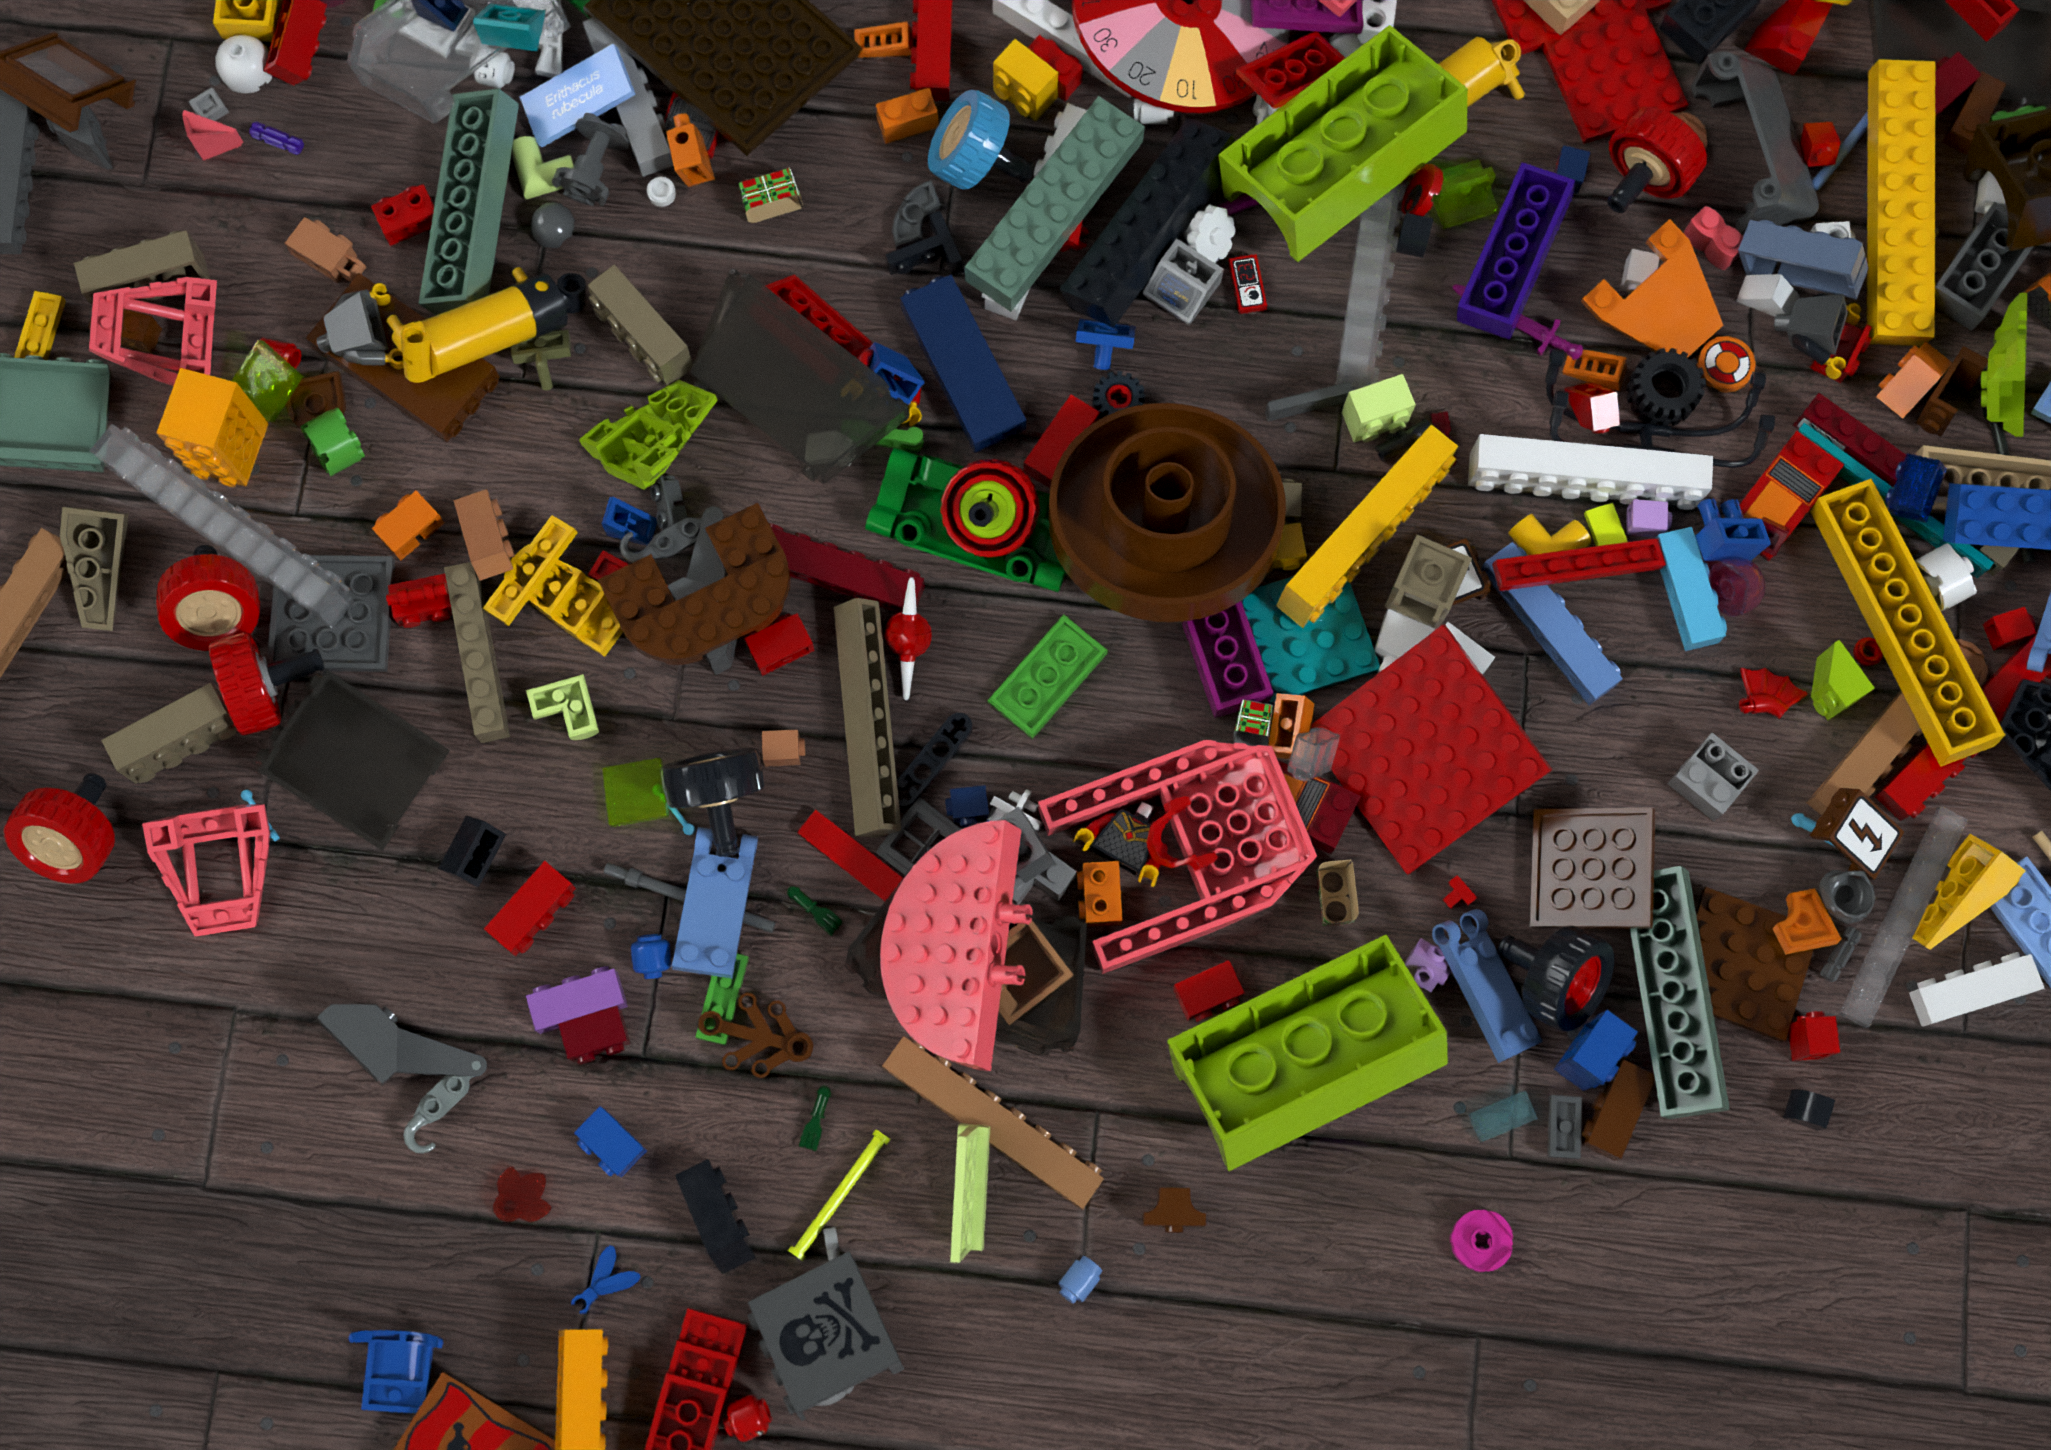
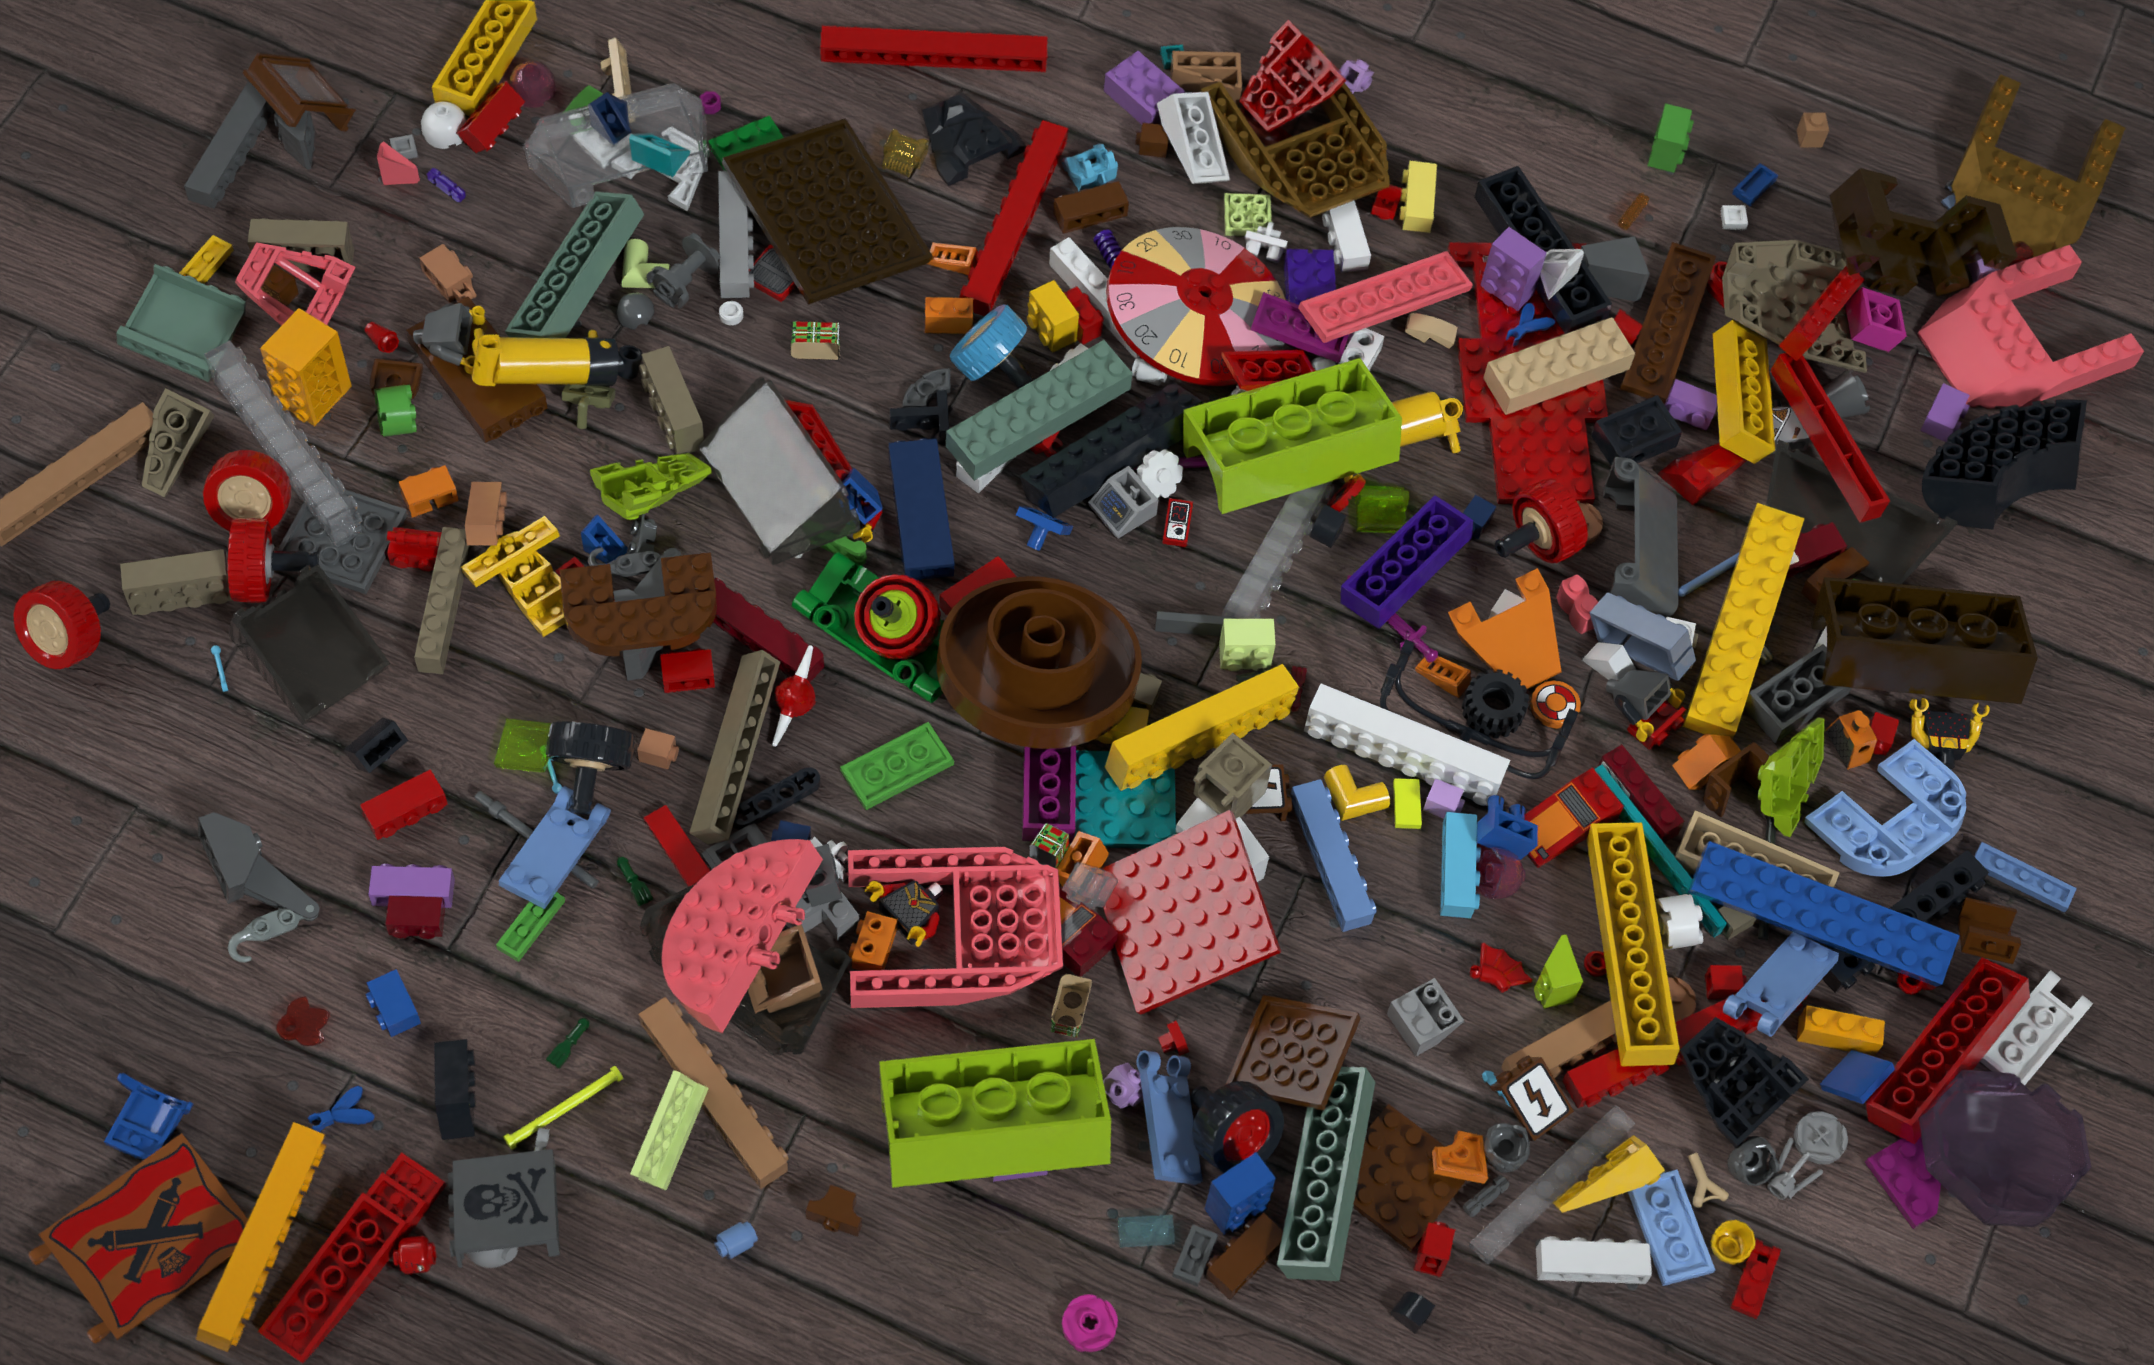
camera: 15 degrees right, 15 degrees down
(209, 825) = (170, 660): coral windscreen -> none
(267, 380) = (364, 352): clear neon green tile -> none
(404, 214) = (521, 267): red brick -> none
(496, 71) = (636, 184): white head -> none
(572, 699) = (502, 657): yellowish green brick -> none
(585, 88) = (706, 217): light blue tile -> none
(651, 955) = (485, 871): blue head -> none
(689, 152) = (763, 288): orange torso -> none
(761, 1036) = (548, 961): reddish brown plant -> none
(1117, 384) = (1038, 562): black bush -> none
(1159, 850) = (932, 911): red helmet -> none
(1208, 991) = (933, 1041): red brick -> none
(1578, 564) = (1369, 812): red plate -> none
(1594, 406) = (1429, 700): red slope -> none
(1777, 534) = (1545, 845): dark red tile -> none
(1820, 144) = (1693, 559): red brick -> none
(1915, 487) = (1675, 838): clear blue brick -> none

